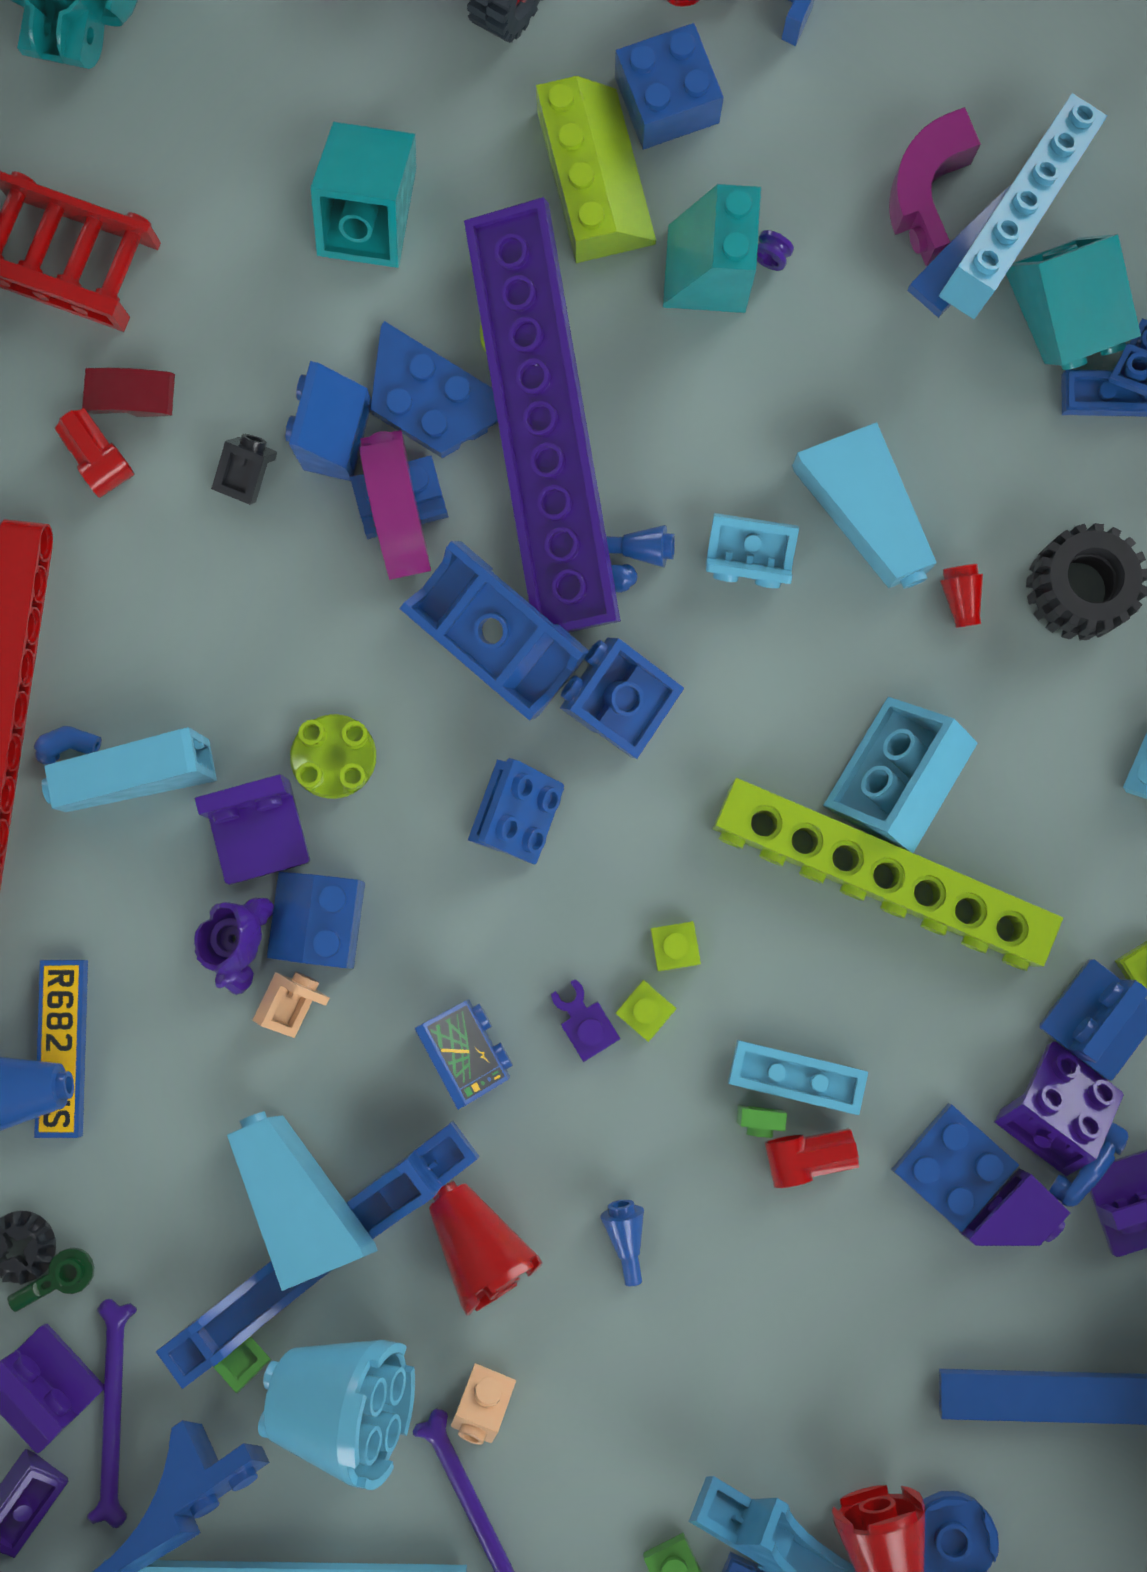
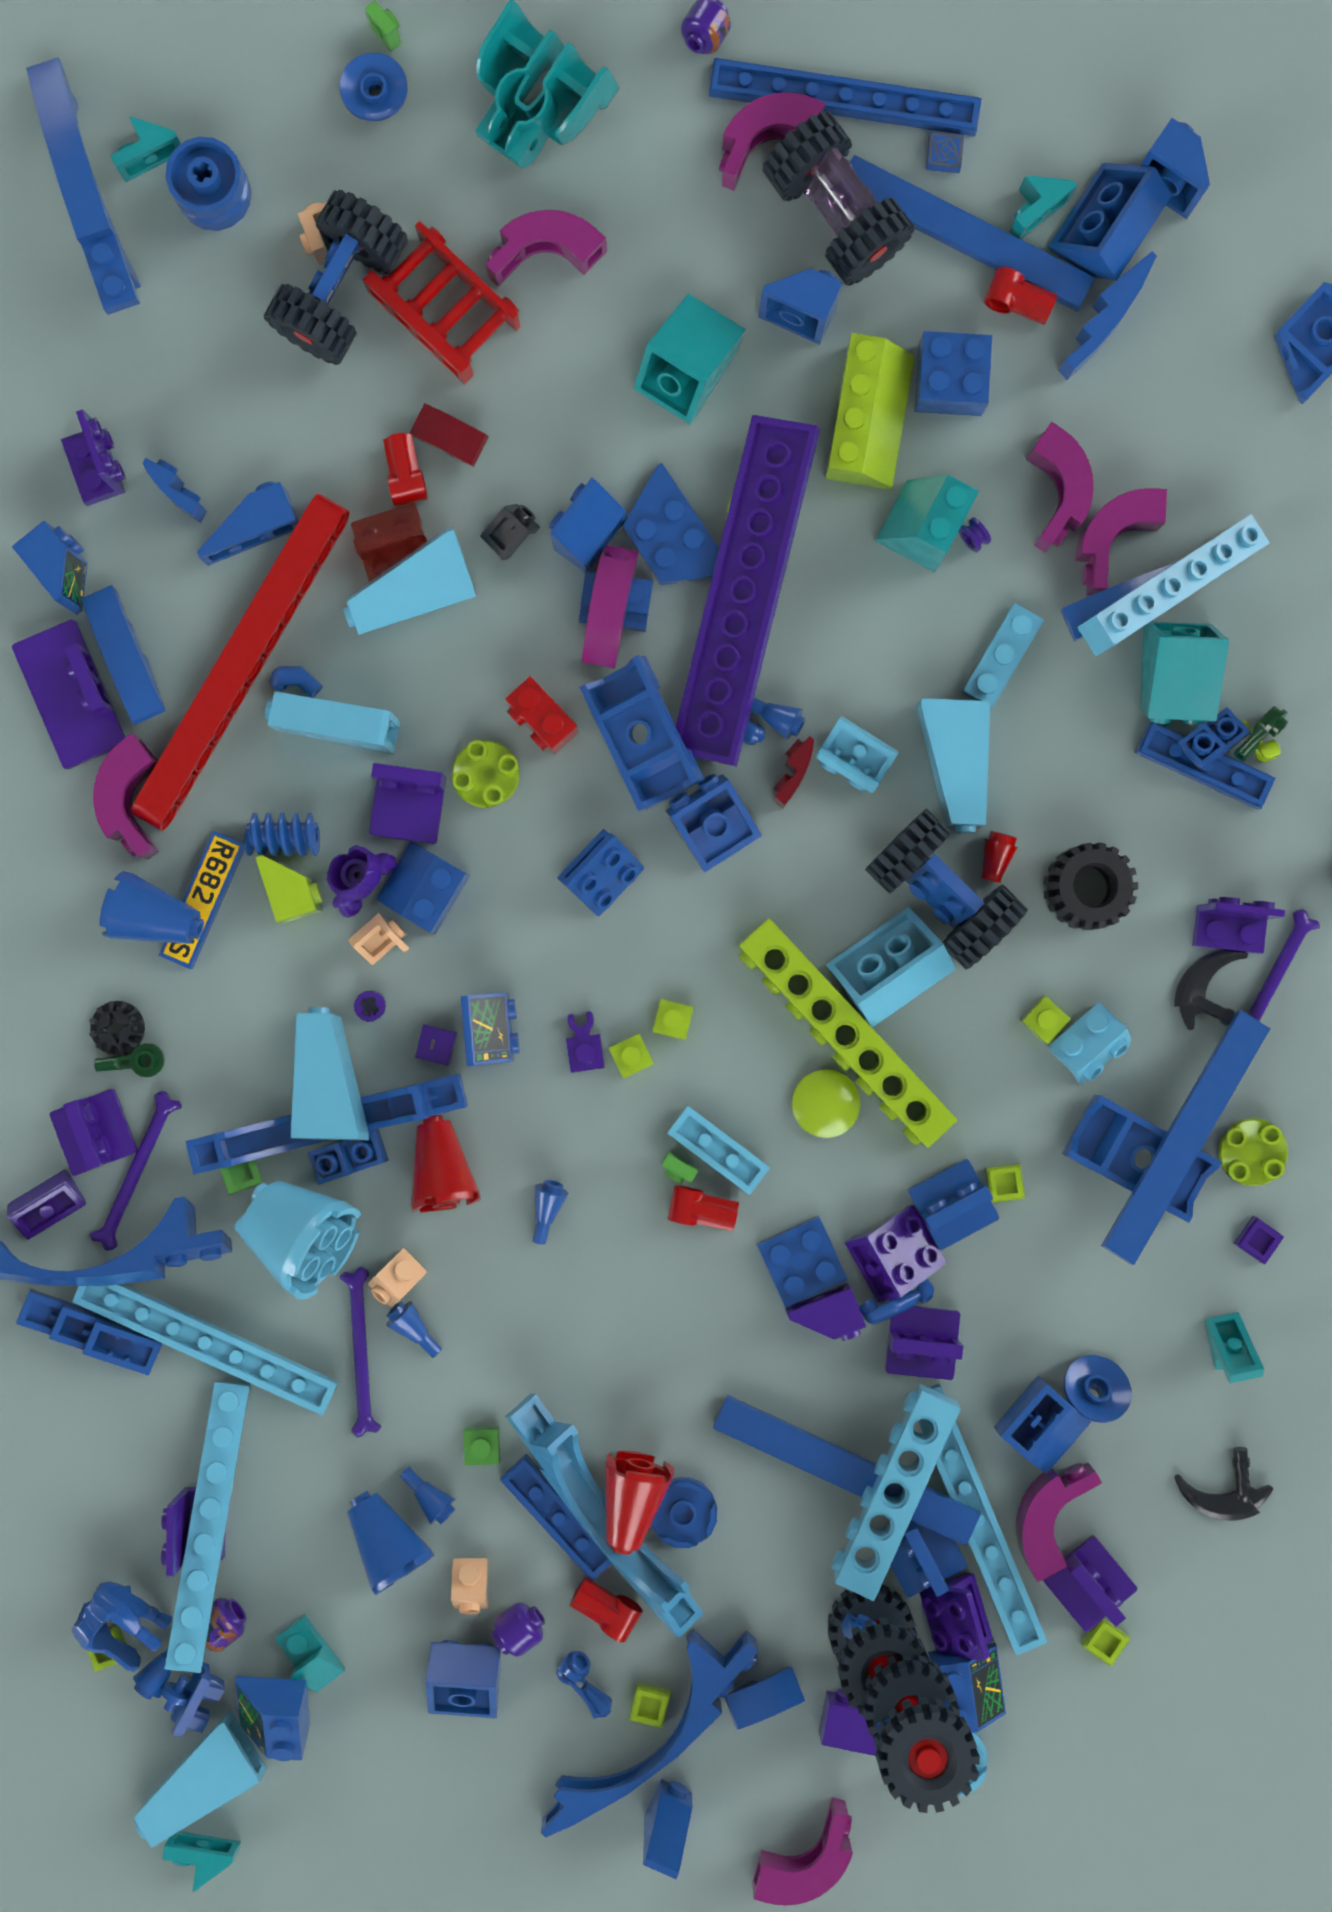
camera: 20 degrees right, 5 degrees up
(115, 542) = (388, 538): none -> clear red bracket
(123, 931) = (282, 835): none -> blue piece
(145, 126) = (546, 233): none -> magenta arch
(158, 993) = (289, 891): none -> lime slope
(162, 572) = (417, 584): none -> medium azure slope
(301, 1096) = (359, 1008): none -> dark purple bush
(361, 1282) = (347, 1157): none -> blue slope
(370, 660) = (542, 715): none -> red brick
(409, 1099) = (436, 1045): none -> dark purple tile
(464, 78) = (802, 303): none -> blue slope
(519, 1454) = (407, 1322): none -> blue cone
(689, 584) = (798, 762): none -> dark red slope
(851, 140) = (1072, 474): none -> magenta arch
(864, 368) = (1002, 655): none -> medium azure plate
(898, 966) = (826, 1103): none -> lime dish
(976, 677) = (976, 921): none -> black plate
(1105, 757) = (1045, 1019): none -> lime plate

